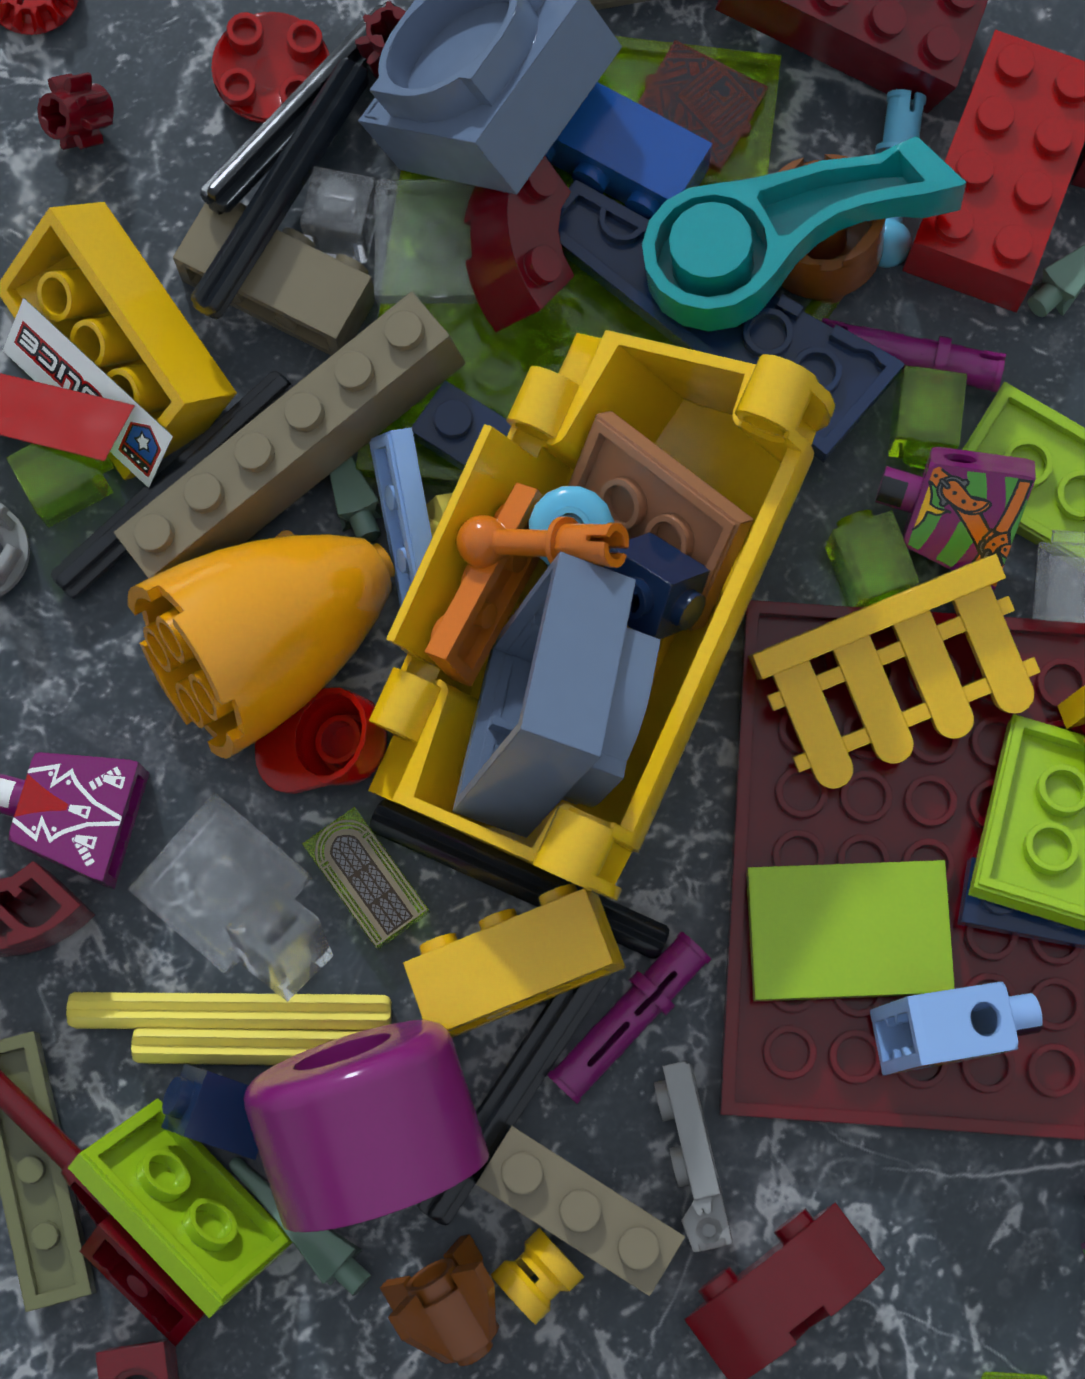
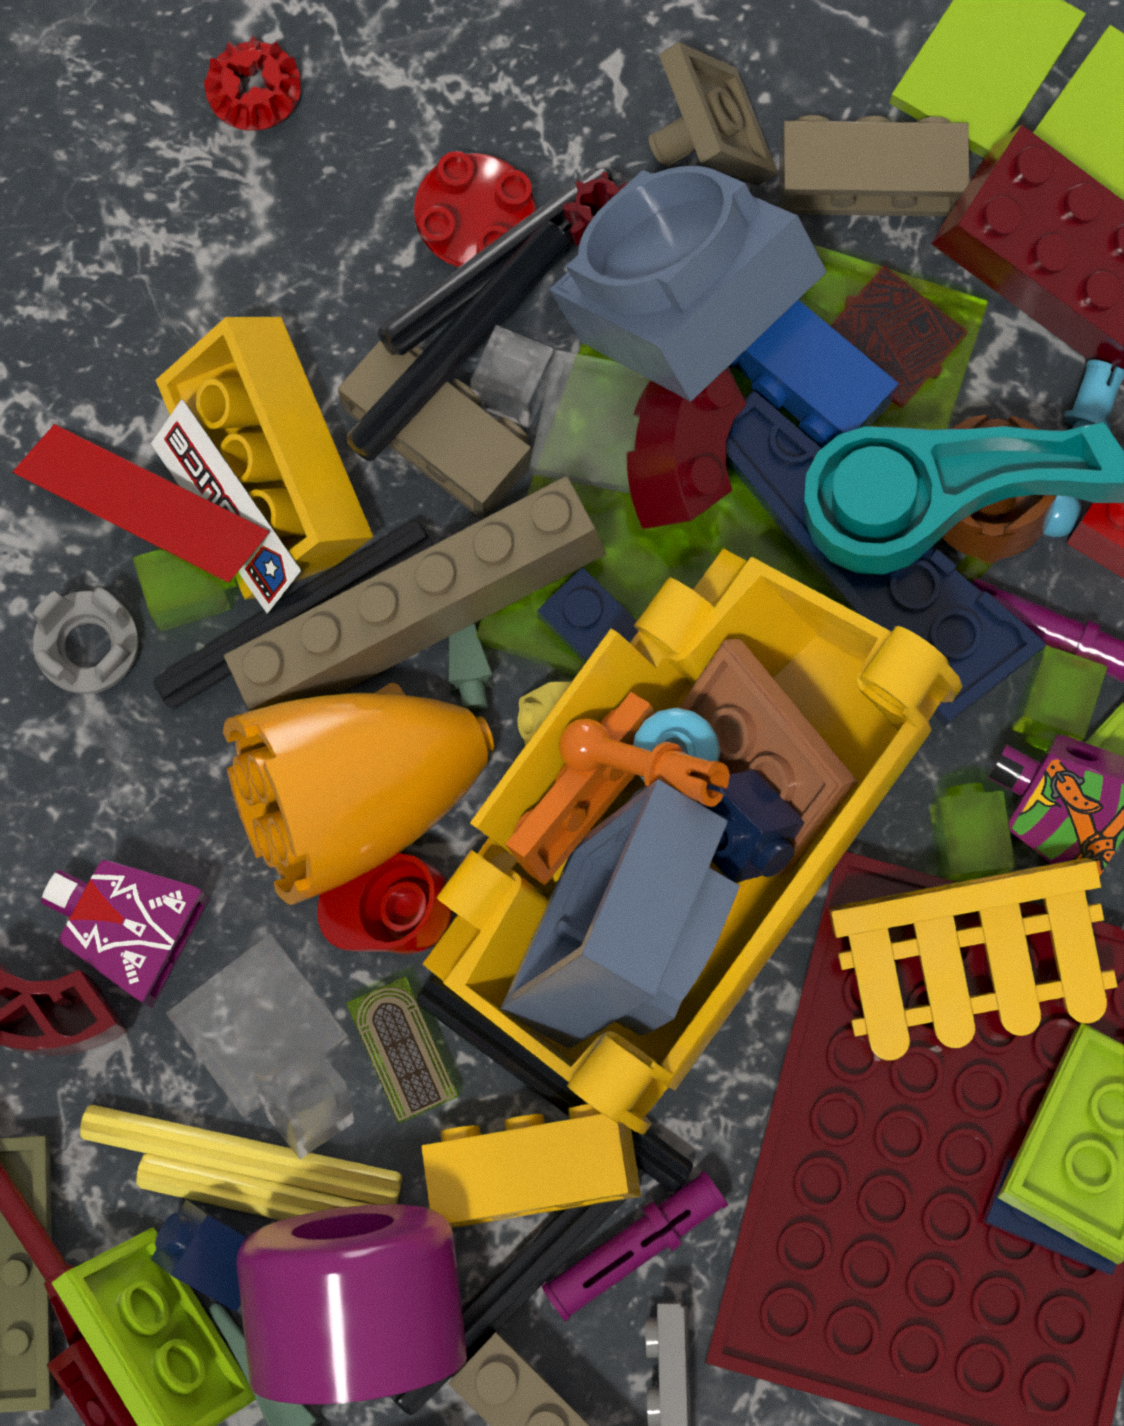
camera: 10 degrees right, 0 degrees up
(75, 111) = (271, 218): dark red gear -> none
(401, 503) = (514, 687): light blue tile -> none
(849, 930) = (872, 1206): lime tile -> none
(952, 1026) = (954, 1328): light blue torso -> none

